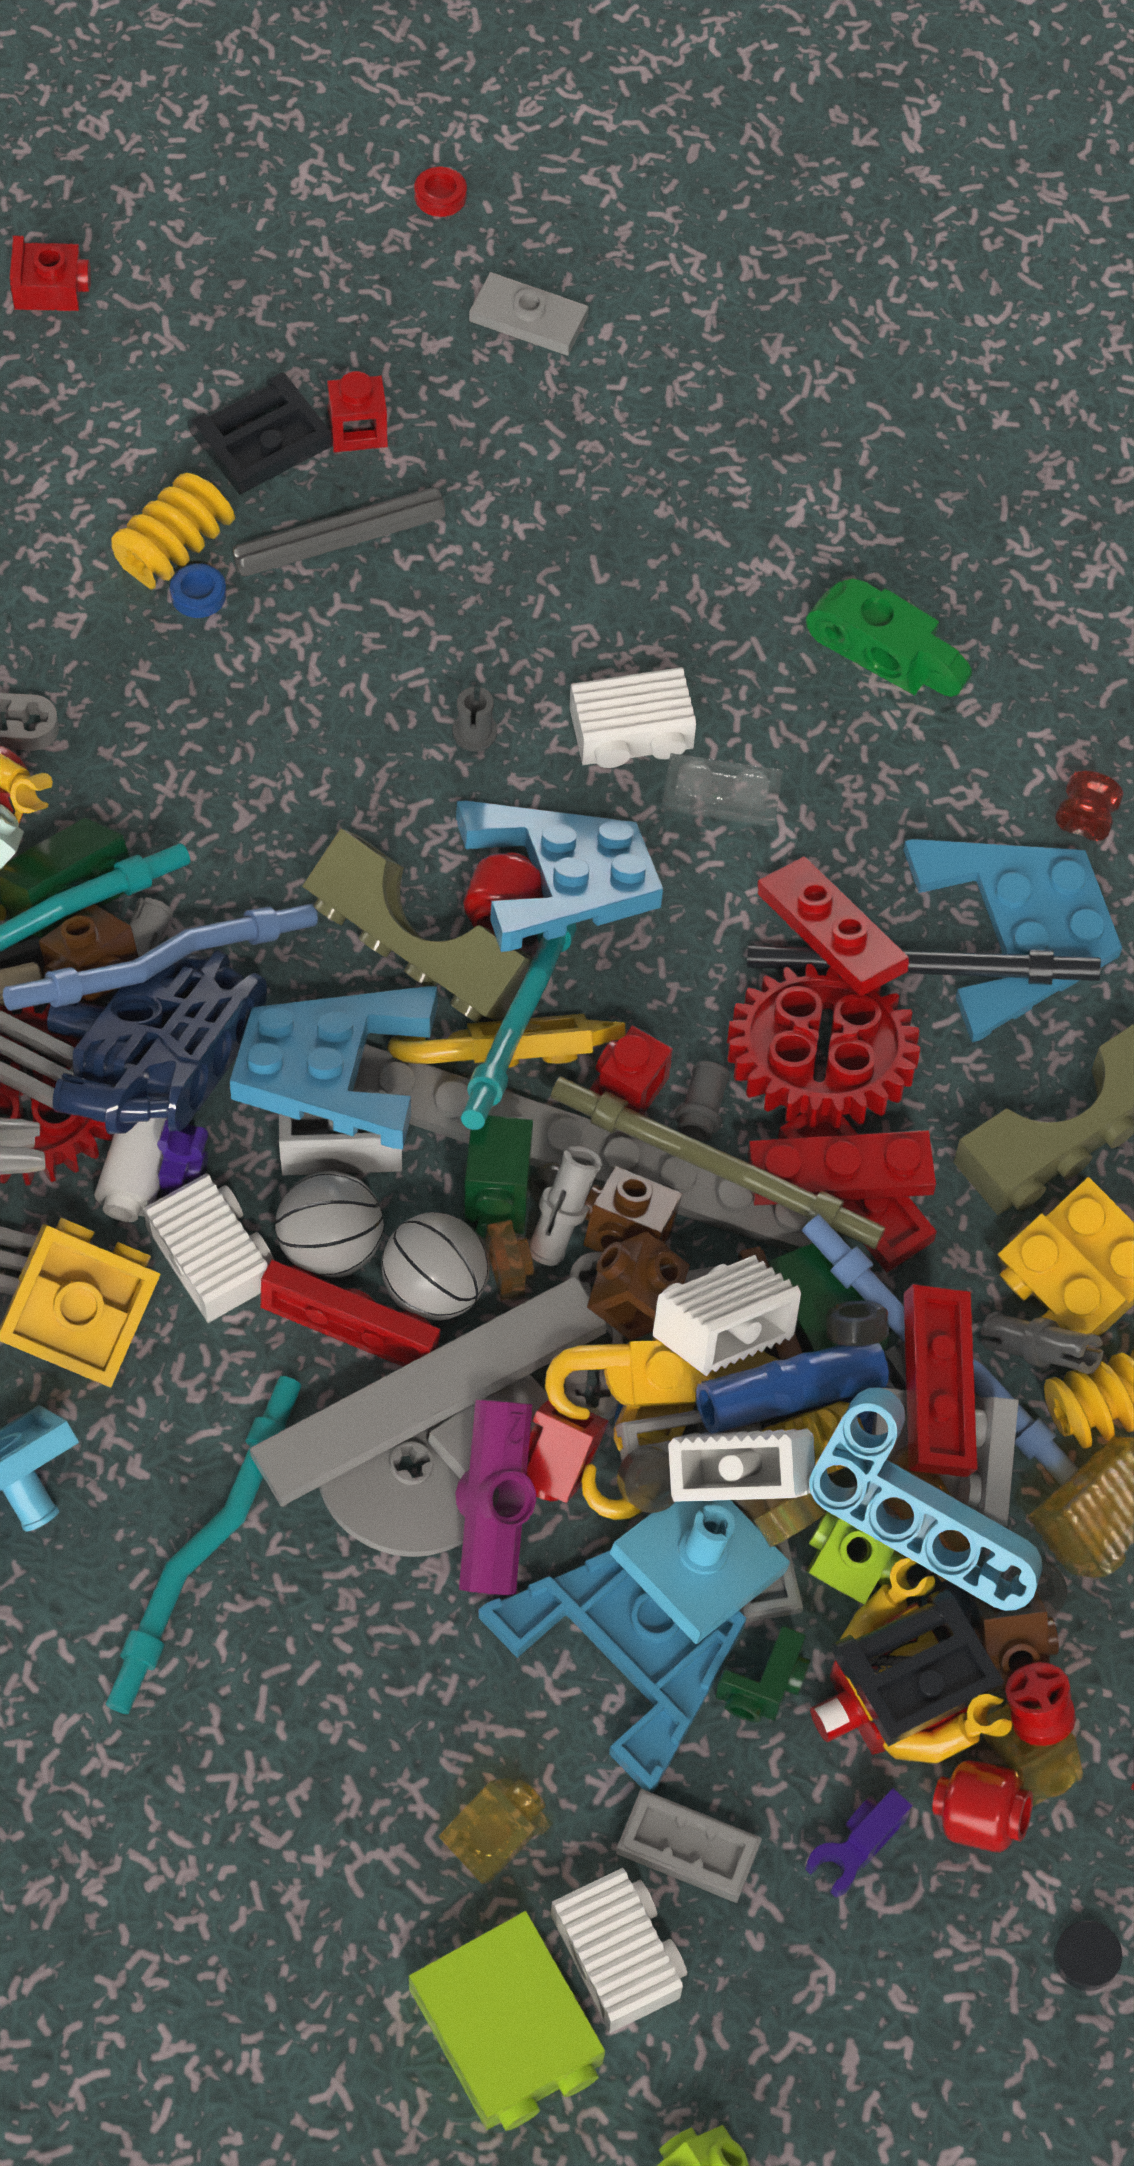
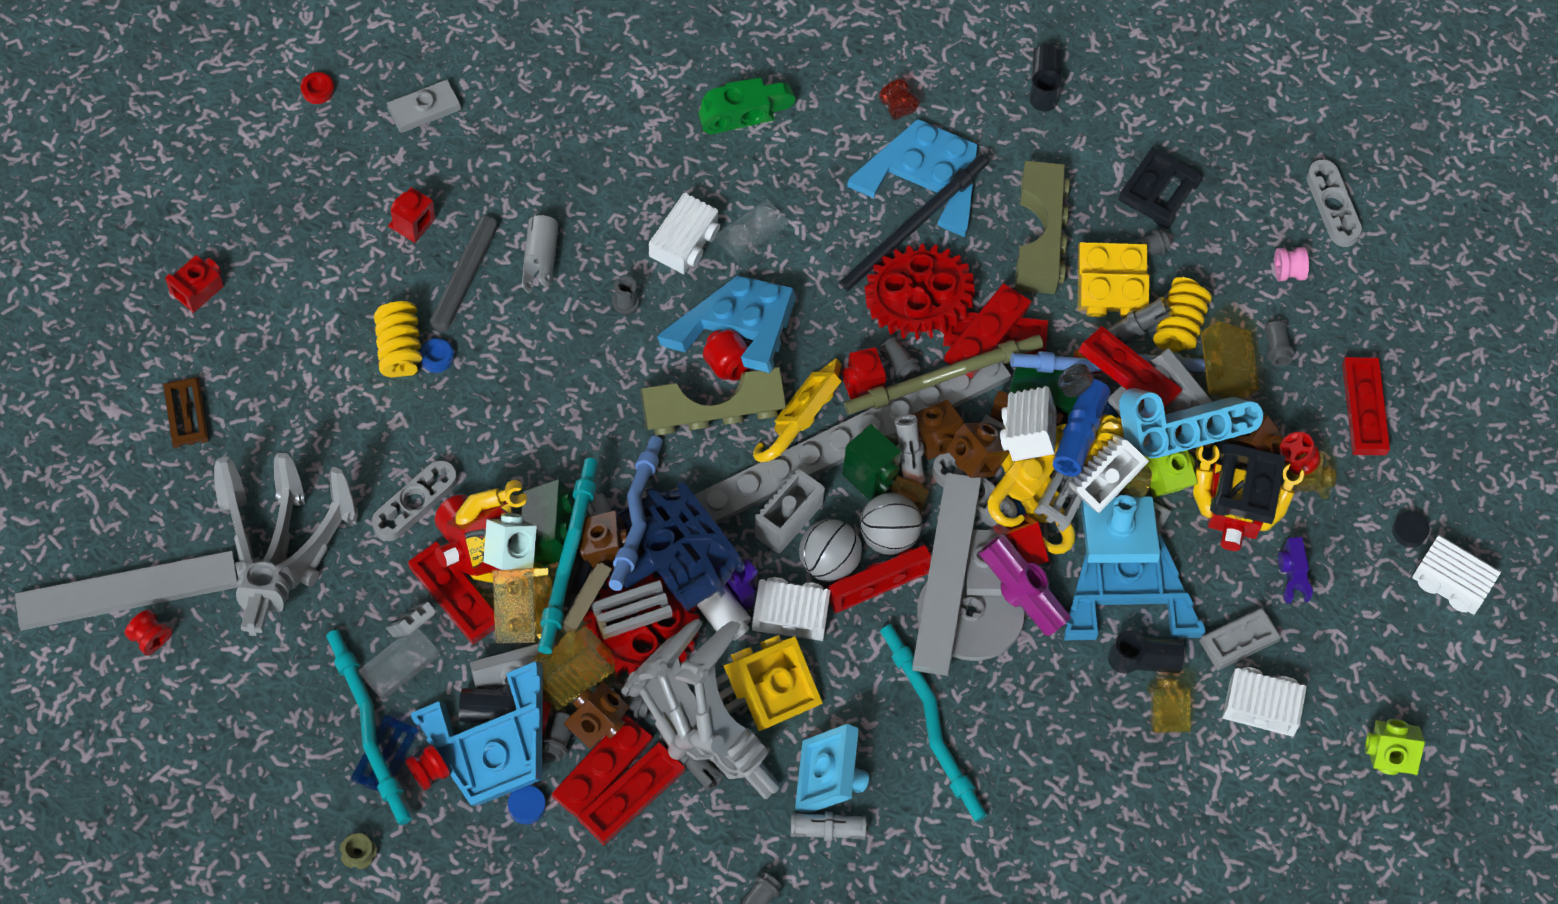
camera: 50 degrees left, 0 degrees up
(266, 444) = (387, 265): black plate -> none
(311, 1051) = (746, 494): dark azure wing -> none
(447, 584) = (539, 250): none -> light grey piece
(490, 1078) = (834, 425): teal bar -> none
(508, 2023) = (1262, 769): lime brick -> none
(553, 1741) = (1148, 653): none -> black piece
(646, 1479) = (1074, 516): clear smoke tile -> none
(783, 1674) = (1198, 546): dark green bracket -> none
(833, 926) = (865, 240): red plate -> none
(983, 1806) = (1318, 513): red head -> none
(1067, 2072) = (1456, 575): none -> white brick

